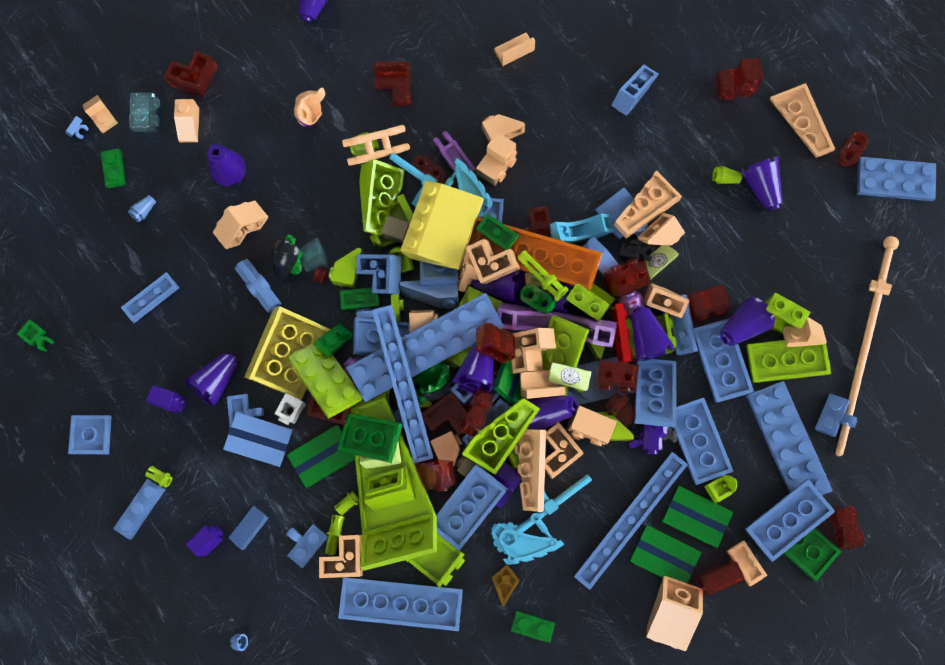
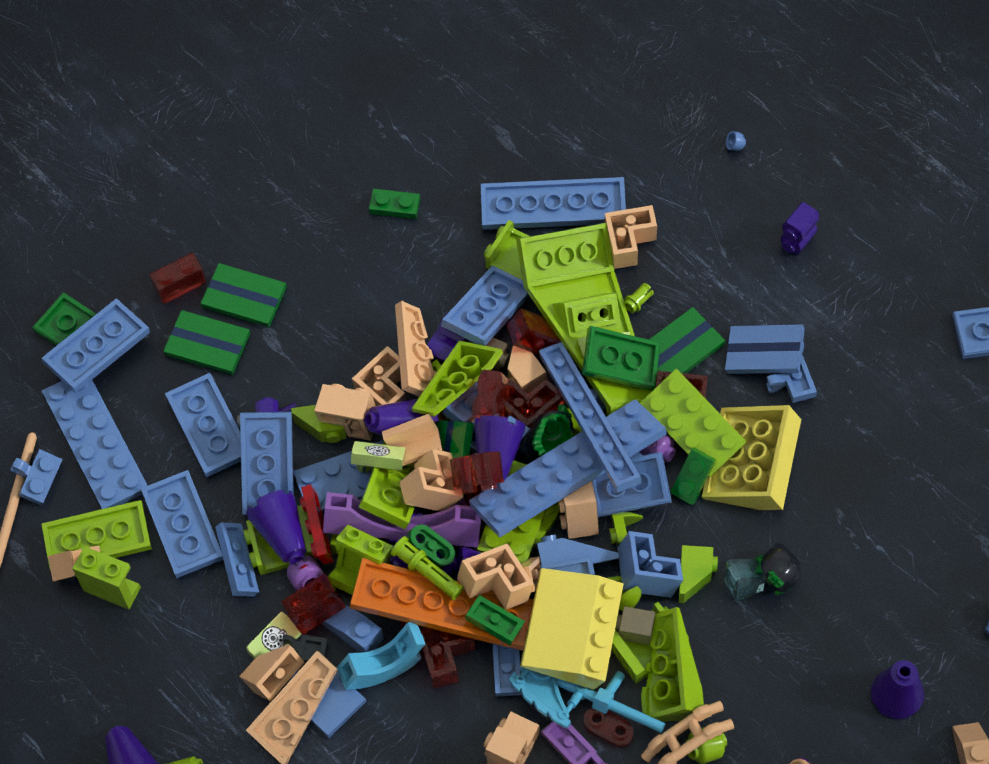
camera: 170 degrees right, 15 degrees down
(139, 509) = (893, 260): medium blue plate -> none
(150, 297) = (953, 502): medium blue plate -> none
(160, 477) = (879, 295): lime pin -> none
(166, 399) = (890, 373): dark purple brick -> none
(213, 378) = (839, 409): dark purple cone -> none
(238, 222) = (854, 606): light nougat brick -> none
(248, 528) = (753, 256): medium blue slope -> none
(257, 285) = (812, 535): medium blue piece -> none
(289, 402) = (732, 381): white brick -> none
(306, 544) = (680, 248): medium blue plate -> none
(320, 275) = (728, 555): clear red bush -> none
(334, 533) = (647, 262): lime axle -> none
(359, 299) = (673, 535): green plate -> none
(365, 313) = (657, 518): medium blue tile -> none
(505, 583) = (432, 241): pearl gold piece -> none
(523, 546) = (416, 283): medium azure bar -> none
(617, 376) = (323, 474): clear red brick -> none
(620, 409) = (310, 441): clear red brick -> none
(630, 520) = (287, 327): medium blue plate -> none
(665, 300) = (262, 582): light nougat slope -> none
(675, 613) = (228, 233): light nougat slope -> none
(709, 302) = (202, 592): clear red brick -> none
(721, 488) = (179, 373): lime plate -> none
(747, 322) = (156, 560): dark purple cone -> none
(748, 563) = (146, 299): light nougat plate -> none
(847, 530) = (26, 350): clear red brick -> none

